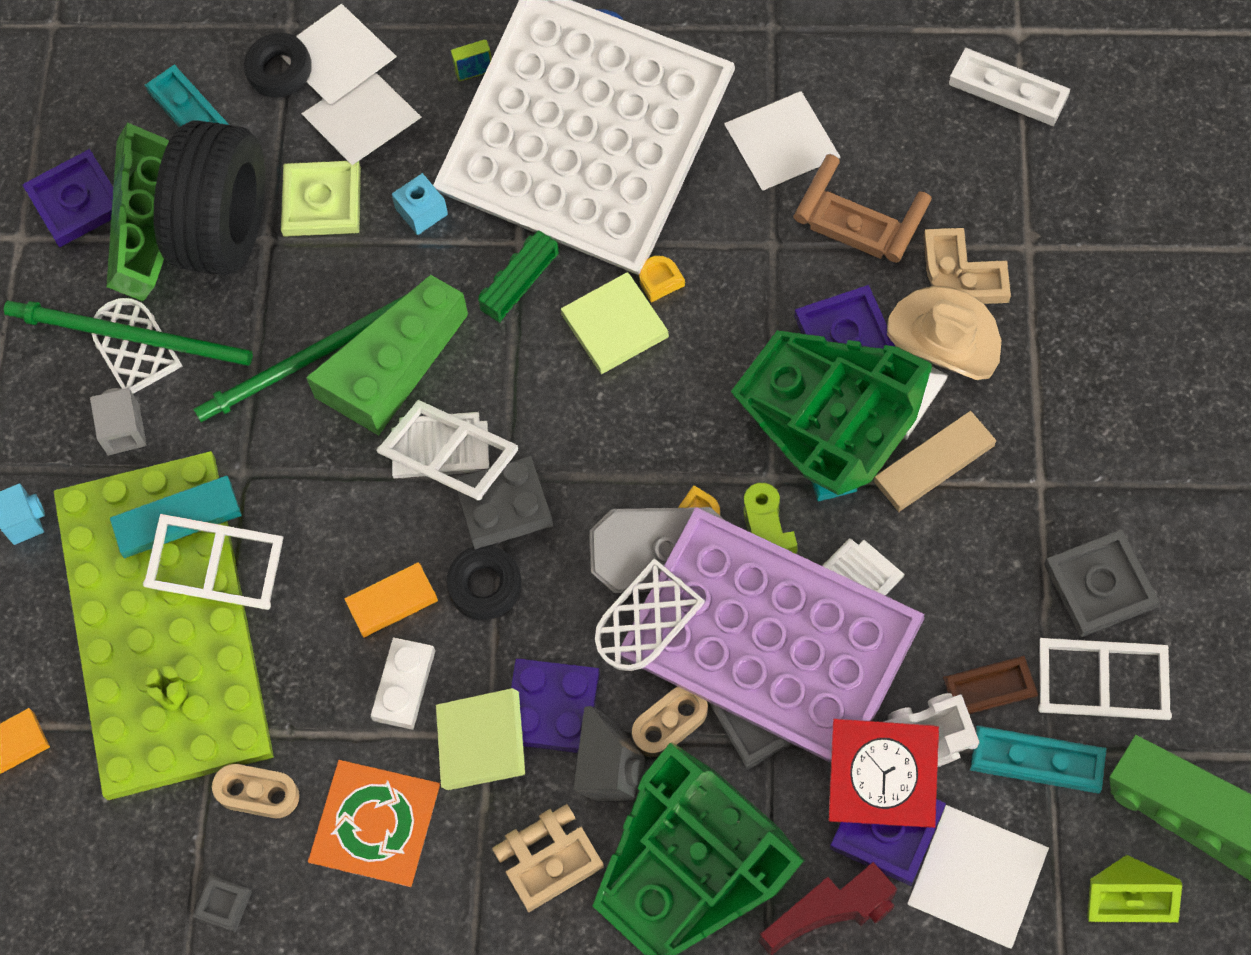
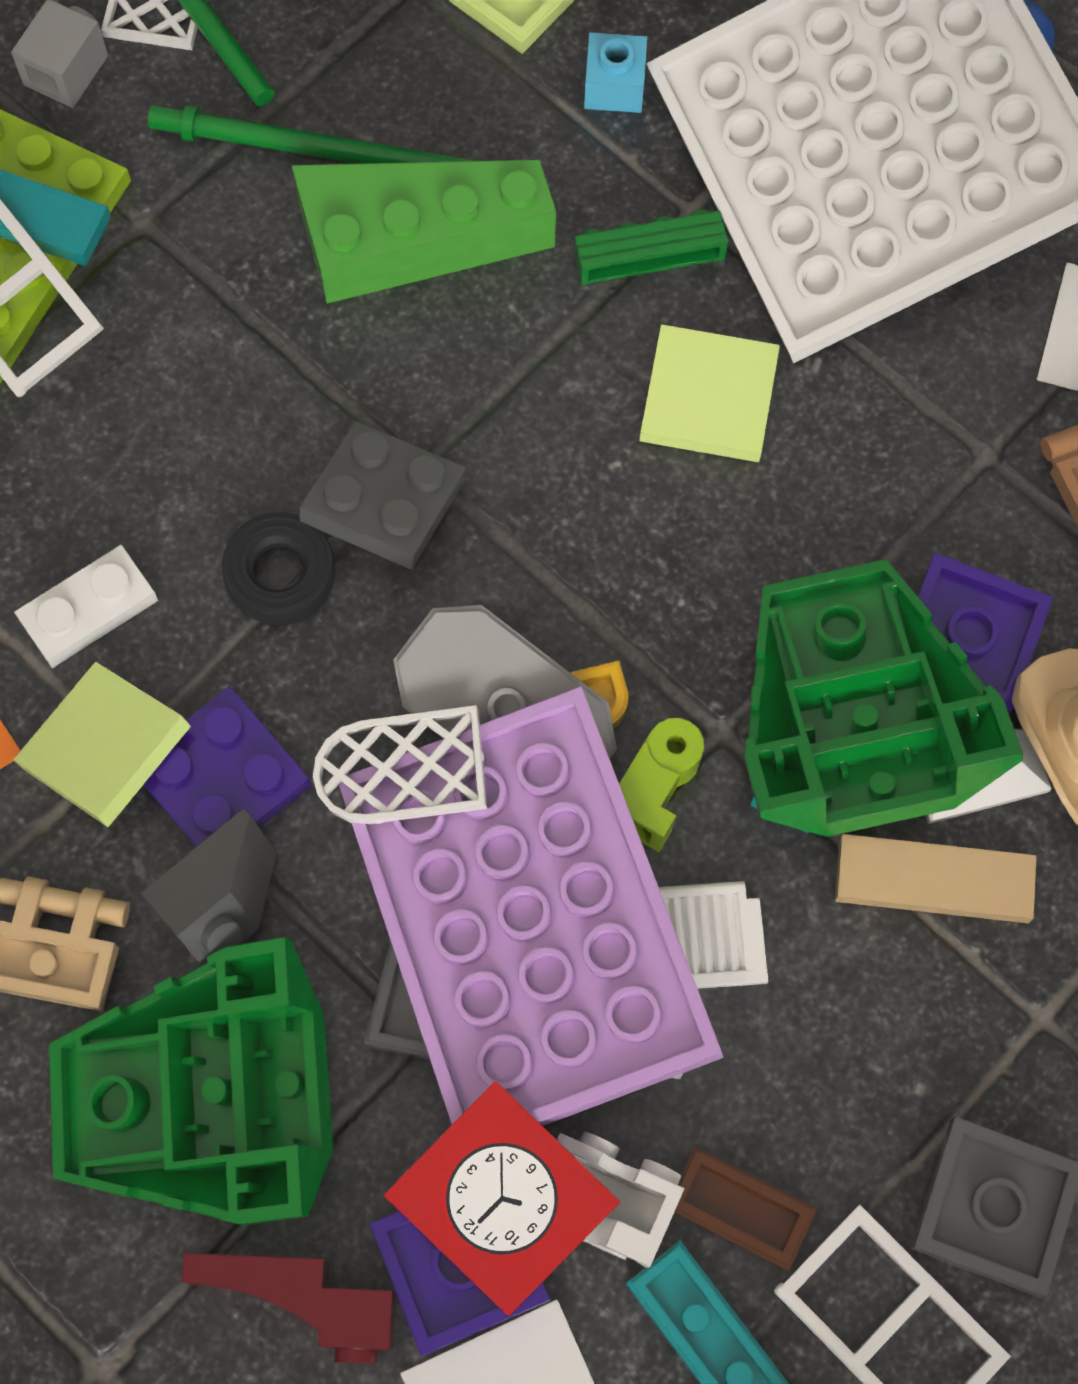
camera: 35 degrees right, 5 degrees up
(391, 599) = (162, 500): light orange tile -> none
(427, 438) = (381, 371): white window -> none
(463, 428) = (419, 372): white window -> none
(660, 277) = (813, 383): yellow tile -> none
(668, 721) = (332, 907): tan plate -> none

